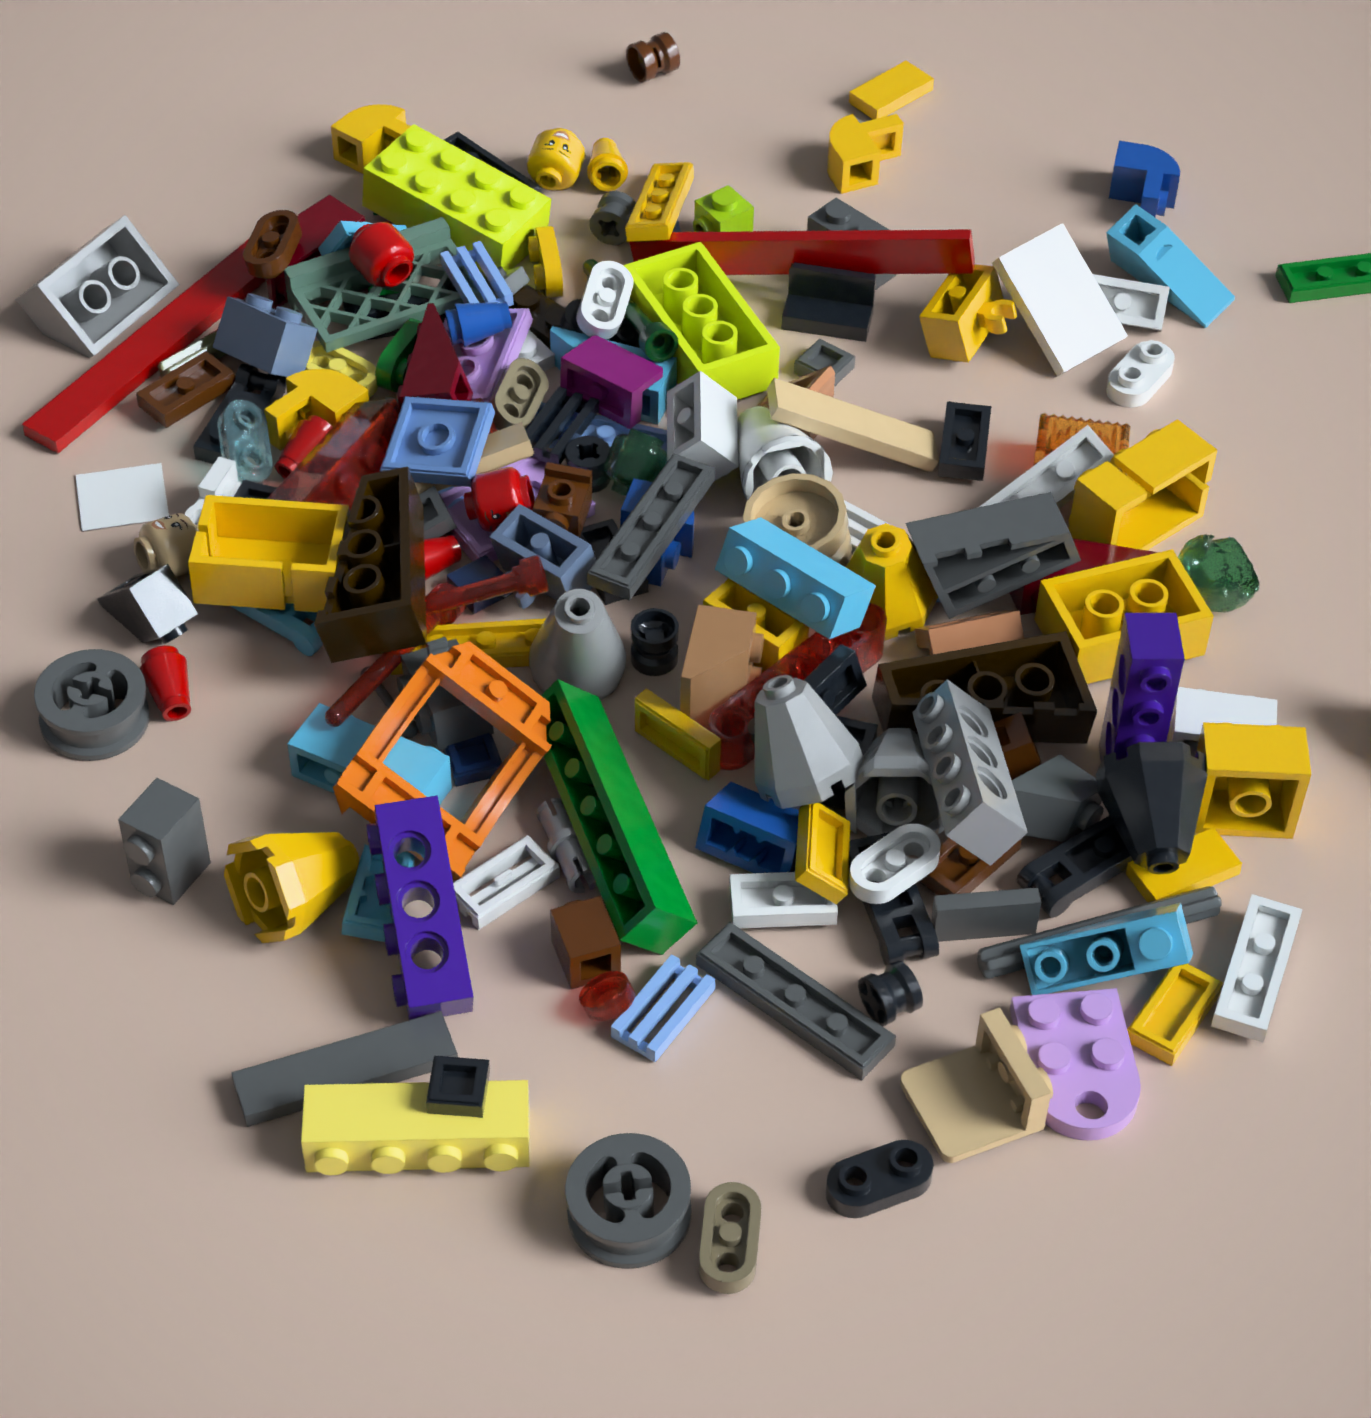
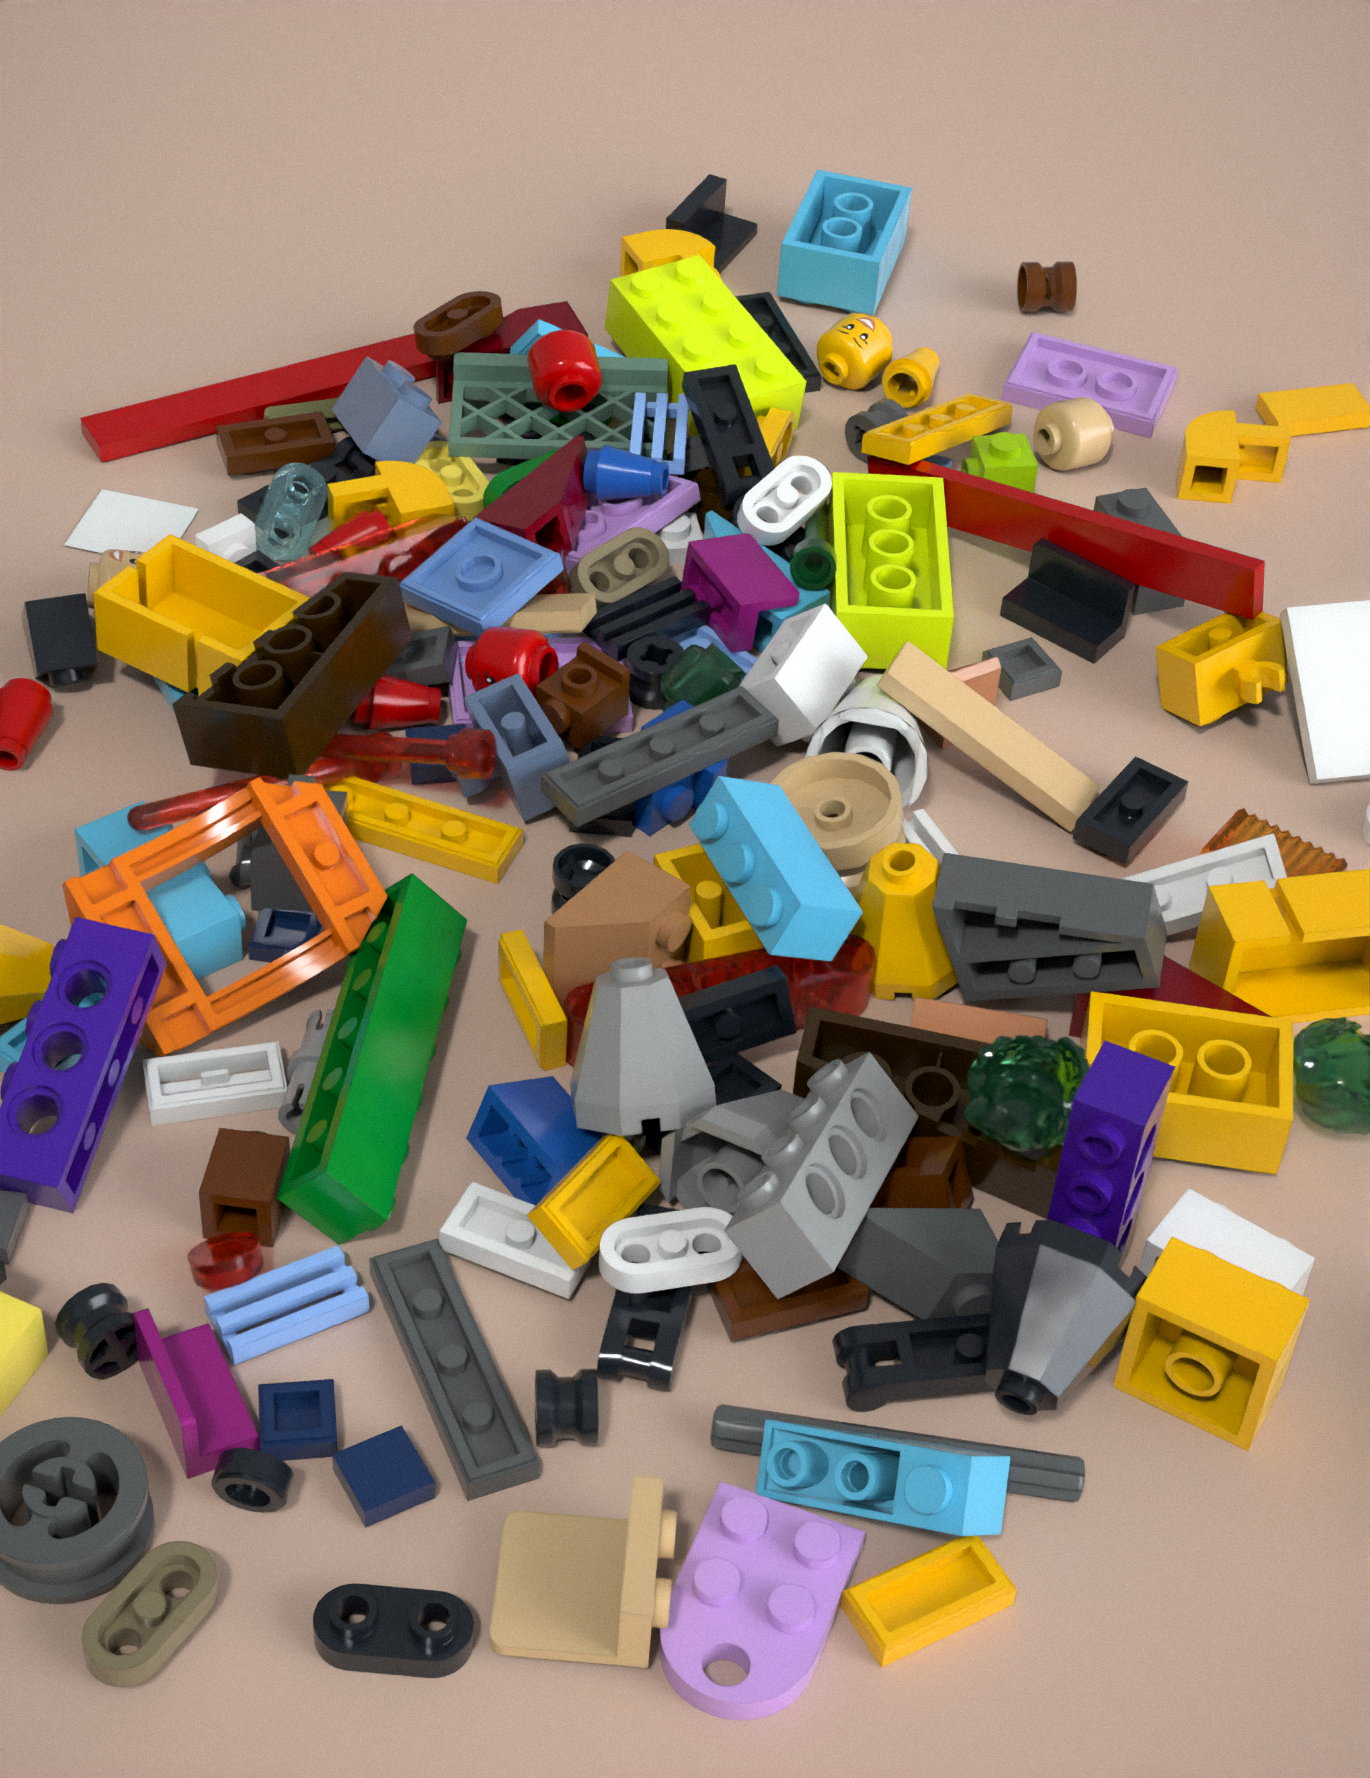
camera: 25 degrees right, 5 degrees down
(99, 290) = (260, 314): light grey slope -> none
(376, 89) = (705, 215): none -> black panel
(492, 71) = (844, 242): none -> medium azure brick
(530, 261) = (727, 430): none -> black plate
(565, 1077) = (100, 1329): none -> black wheel
(578, 646) = (480, 853): light grey cone -> none
(650, 1092) = (193, 1394): none -> magenta panel
(724, 1078) = (298, 1419): none -> dark blue tile
(728, 125) = (1060, 370): none -> lavender tile
(732, 1127) = (252, 1480): none -> black tile
(750, 169) = (1073, 433): none -> tan head
(804, 1088) = (383, 1476): none -> dark blue tile
(986, 914) = (755, 1364): dark grey tile -> none
(1060, 664) = (1025, 1090): none -> clear green hair
(1207, 865) = (1092, 1424): yellow tile -> none
(1256, 968) = (1073, 1591): white plate -> none

